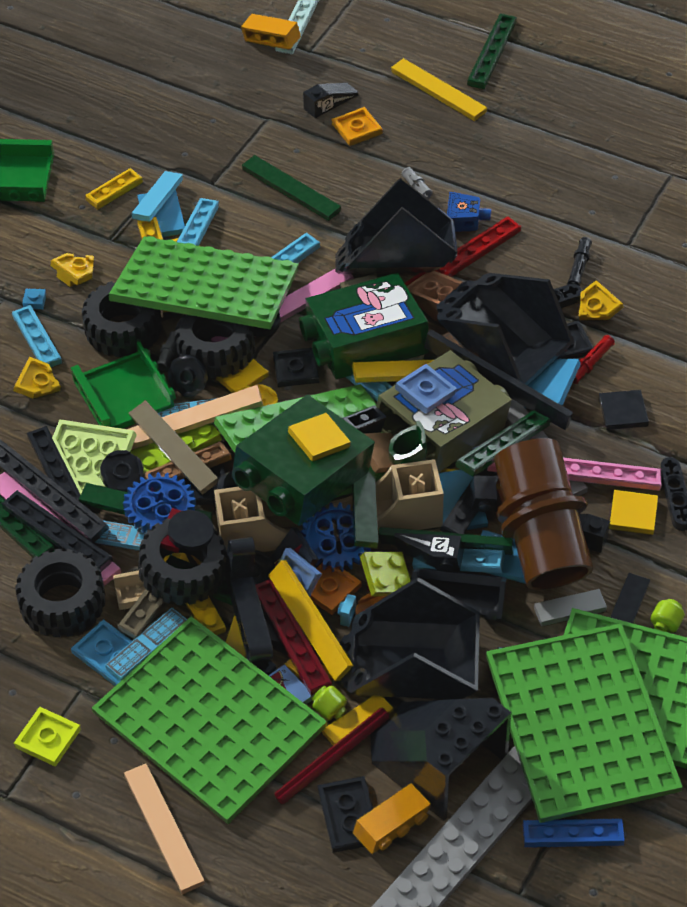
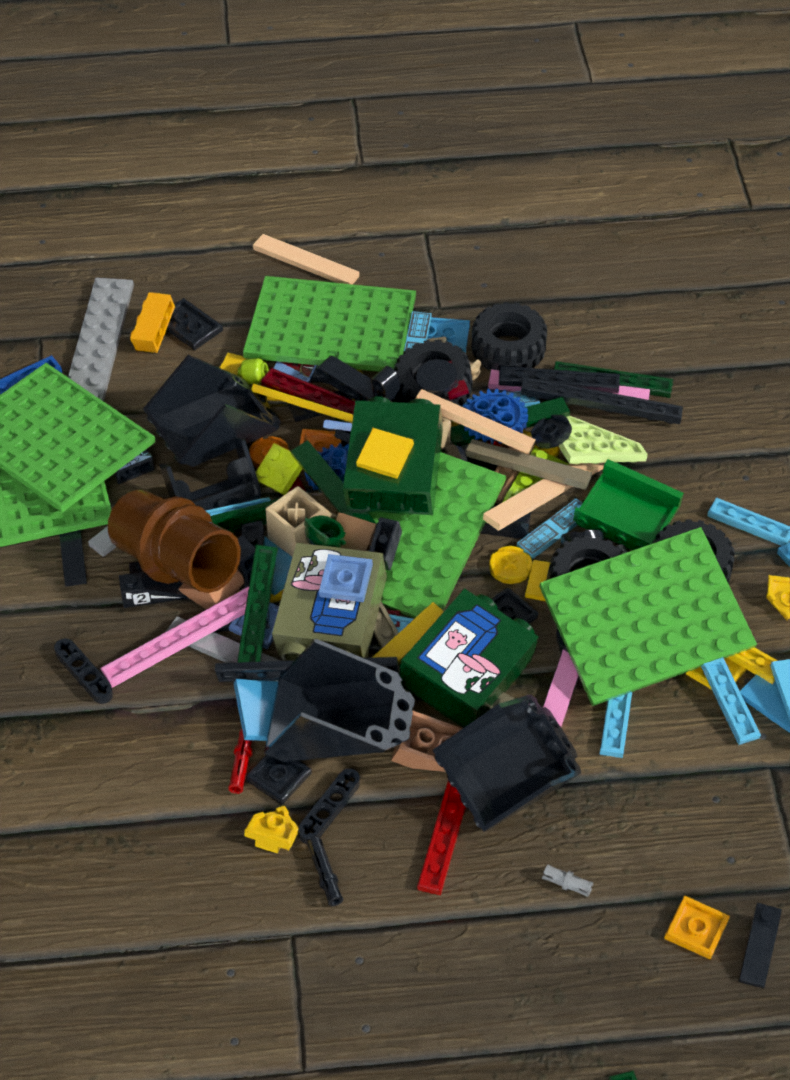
camera: 145 degrees right, 0 degrees up
(36, 379) = (705, 481): yellow plate -> none
(47, 736) = (430, 266): neon yellow plate -> none
(51, 460) = (650, 443): black tile -> none
(192, 484) = (480, 423): none -> light nougat tile
(291, 187) = (689, 802): dark green tile -> none
(331, 756) = (229, 336): dark red axle -> none
(347, 610) = (292, 436): medium azure plate -> none
(433, 737) = (133, 359): black windscreen -> none
(437, 551) = (249, 494): black slope -> none
(439, 89) = (656, 1039): yellow tile -> none
(466, 211) = (486, 864): blue torso -> none
(623, 409) = (179, 729): black tile -> none
(633, 512) = (112, 635): yellow tile -> none
(667, 616) = (31, 553): lime head -> none

